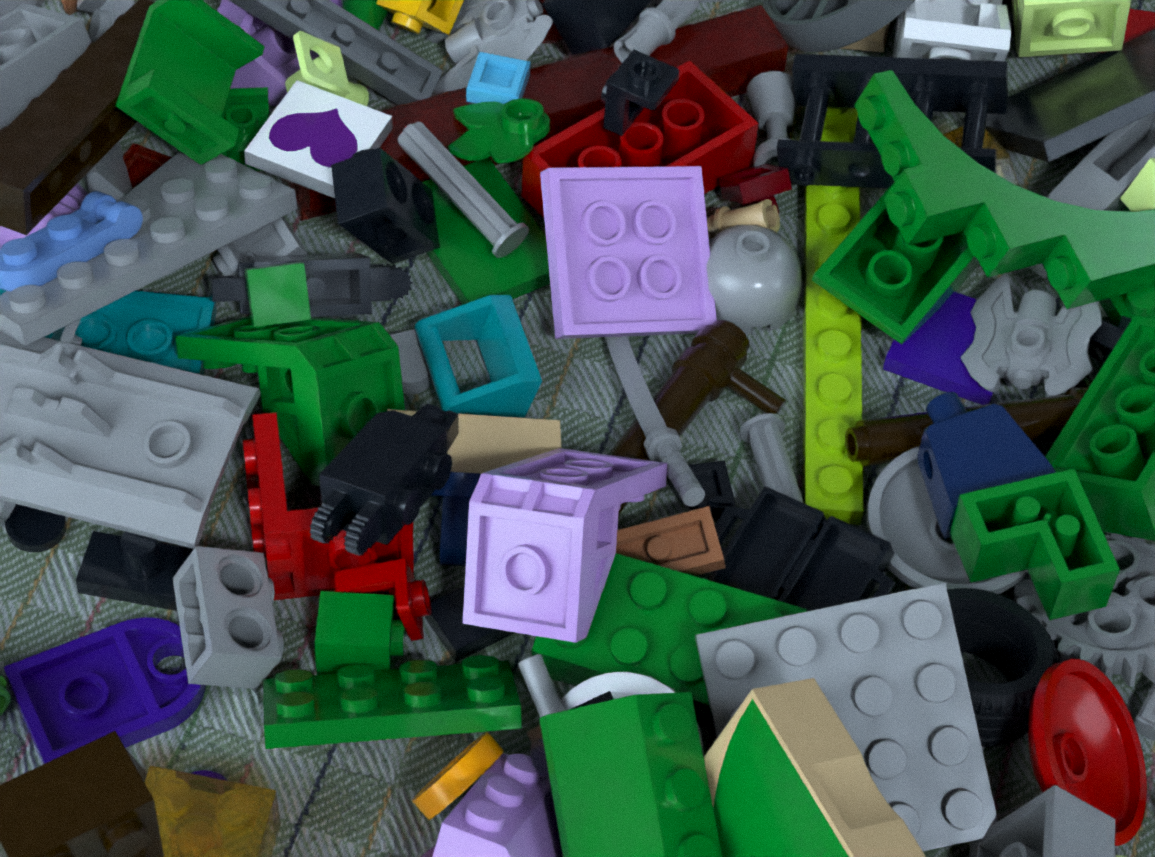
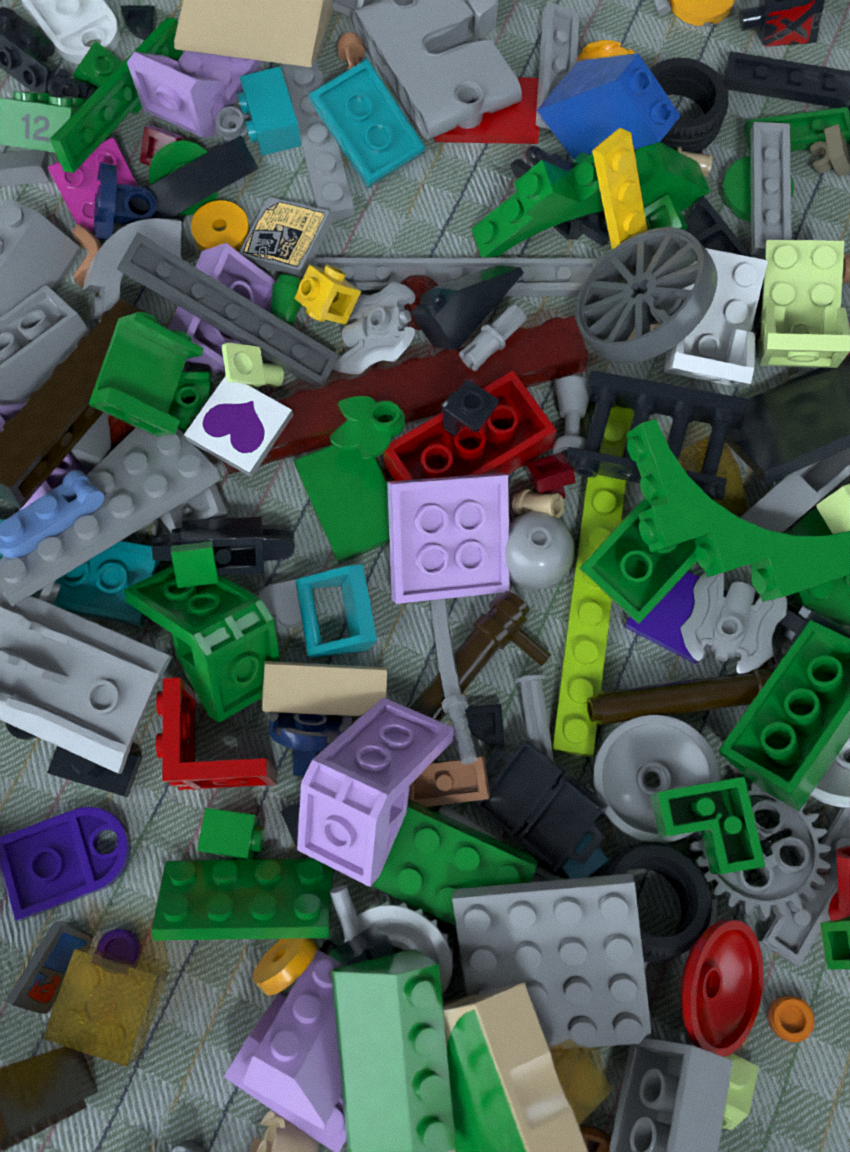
camera: 10 degrees right, 20 degrees up
(227, 618) = (130, 819): light grey brick -> none
(384, 477) = (246, 750): black hinge -> none
(385, 205) = (279, 484): black brick -> none
(395, 579) = (248, 800): red bracket -> none
(462, 189) = (336, 470): light grey axle -> none
(497, 79) = (372, 378): medium azure tile -> none
(972, 453) = (676, 745): dark blue torso -> none

